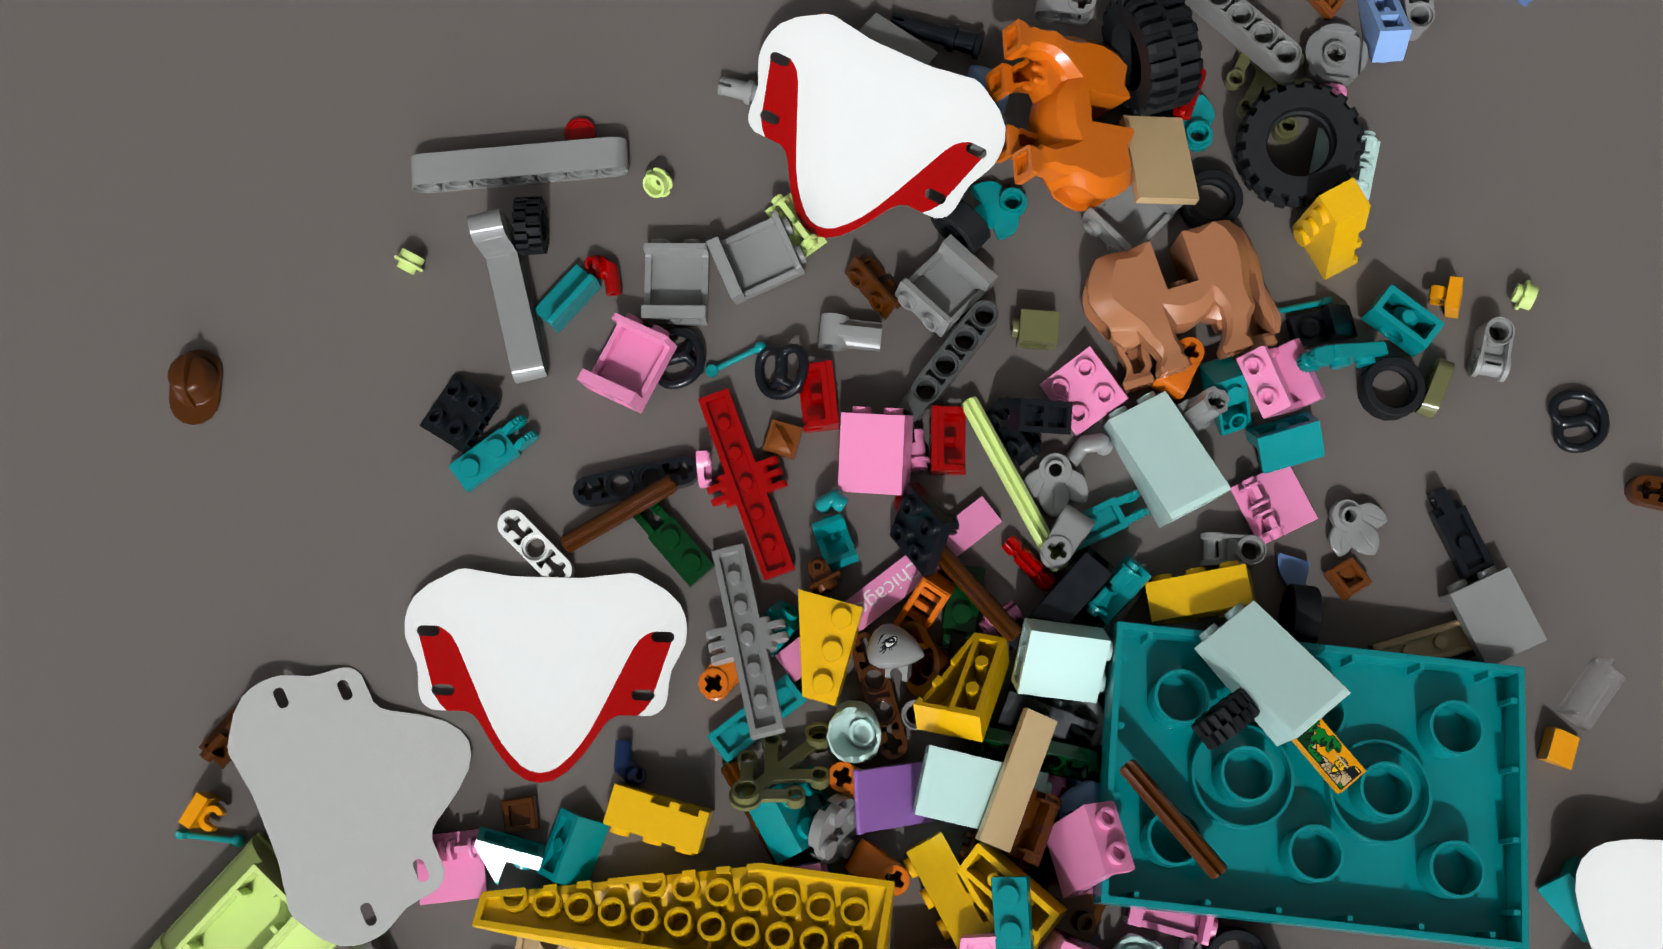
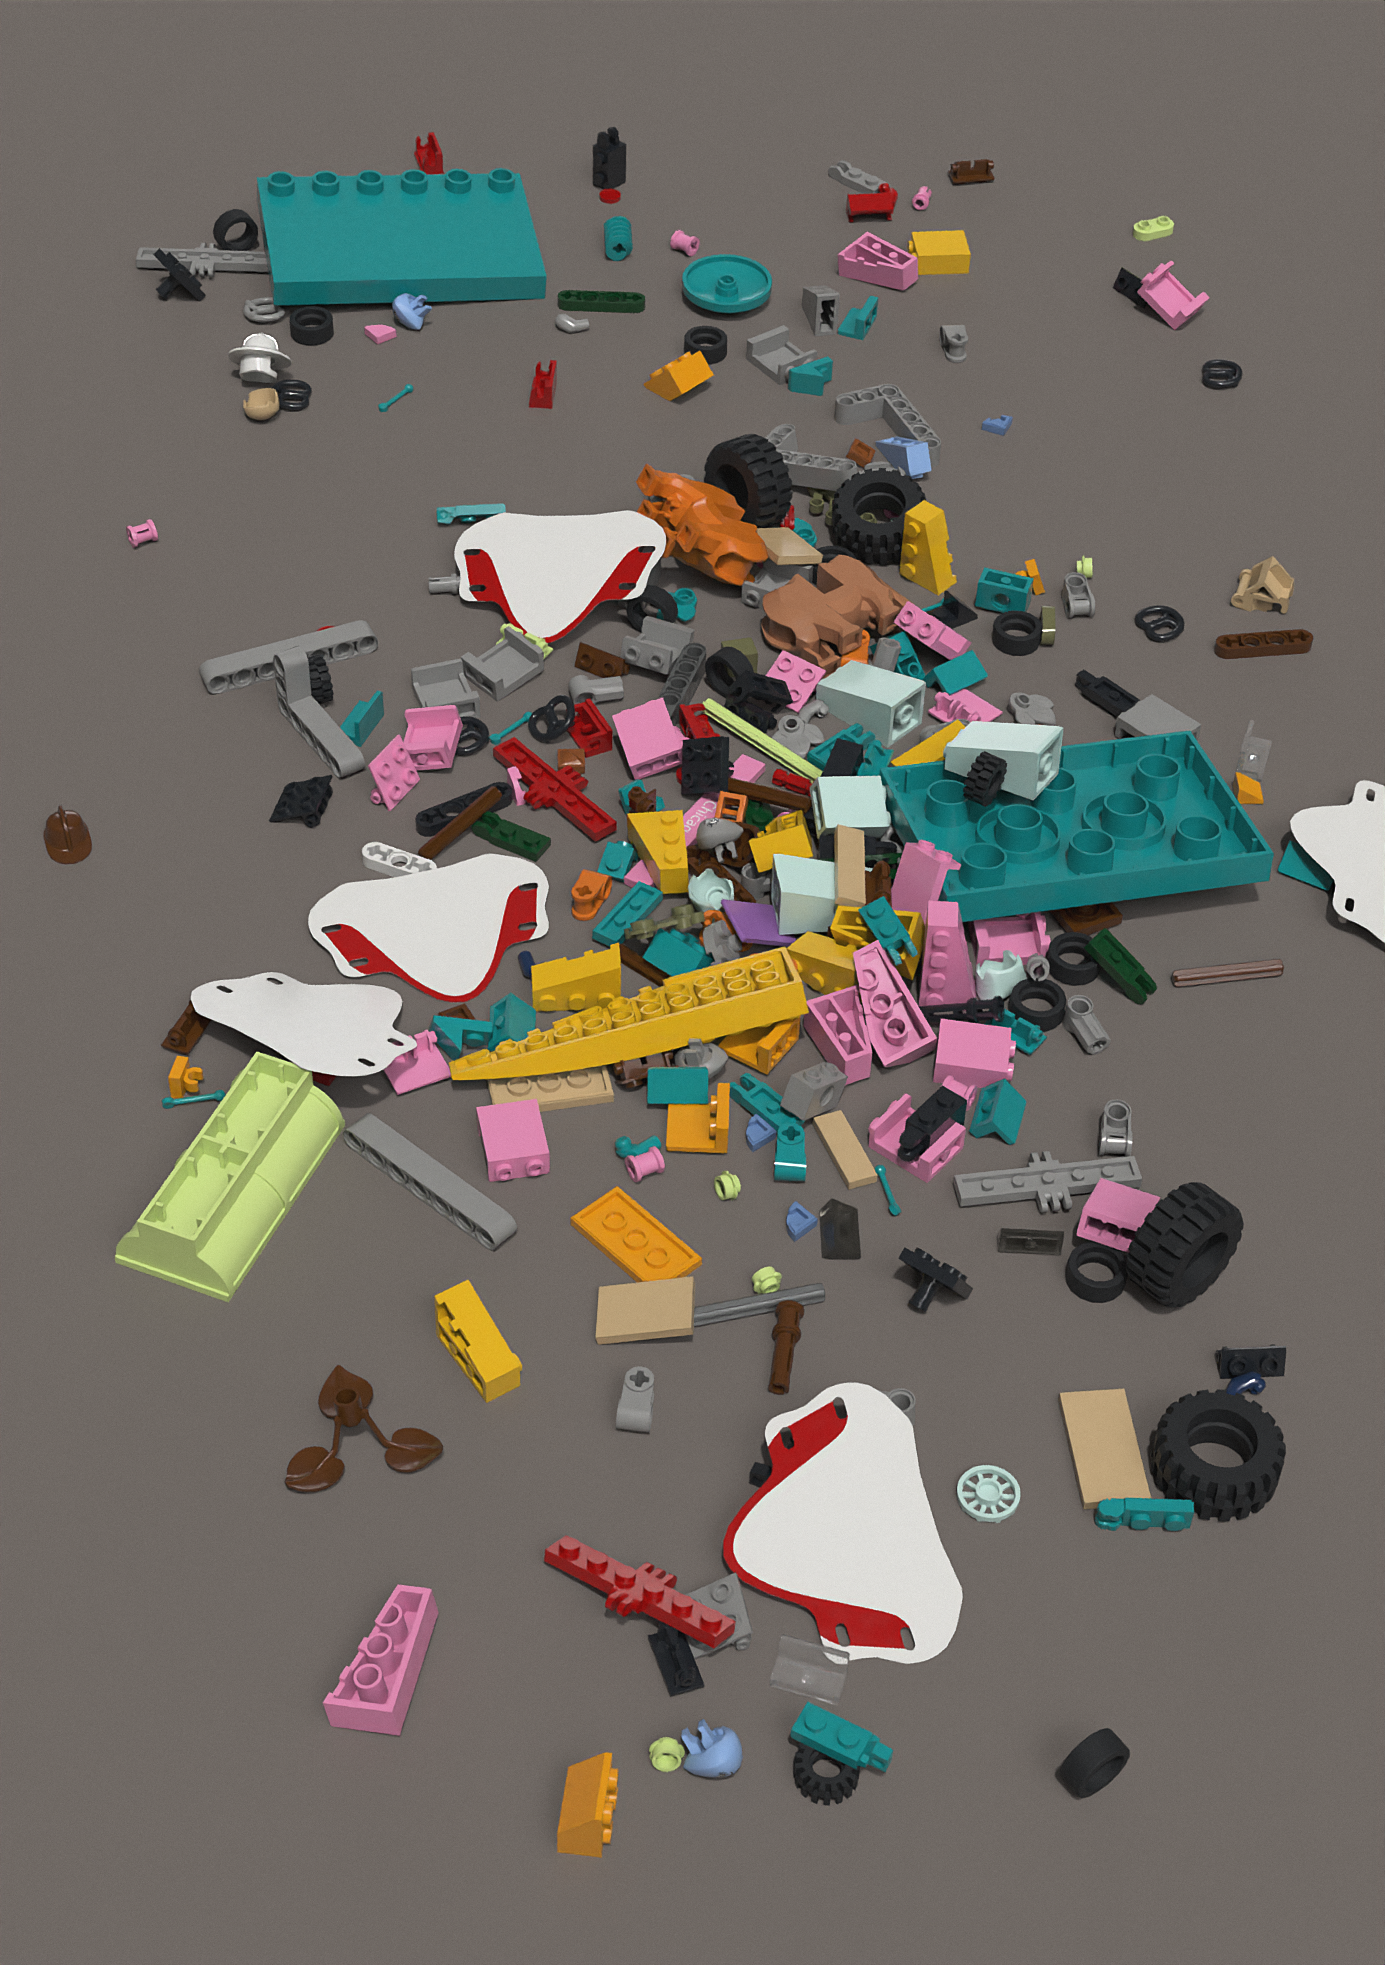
camera: 25 degrees left, 35 degrees down
(409, 261) = (222, 727): yellowish green plate -> none
(492, 454) = (339, 820): teal hinge -> none
(567, 414) = (393, 774): none -> bright pink hinge
(605, 270) = (389, 702): red arm -> none
(657, 183) = (403, 650): yellowish green plate -> none
(747, 642) = (605, 858): light grey hinge -> none
(831, 499) = (628, 770): teal arm -> none
(1012, 365) = (716, 672): none -> black tyre
(1068, 534) = (817, 750): light grey piece -> none
(1173, 819) = (976, 842): reddish brown axle -> none
(1329, 756) = (1071, 792): tile -> none
(1341, 356) = (971, 615): teal hinge -> none

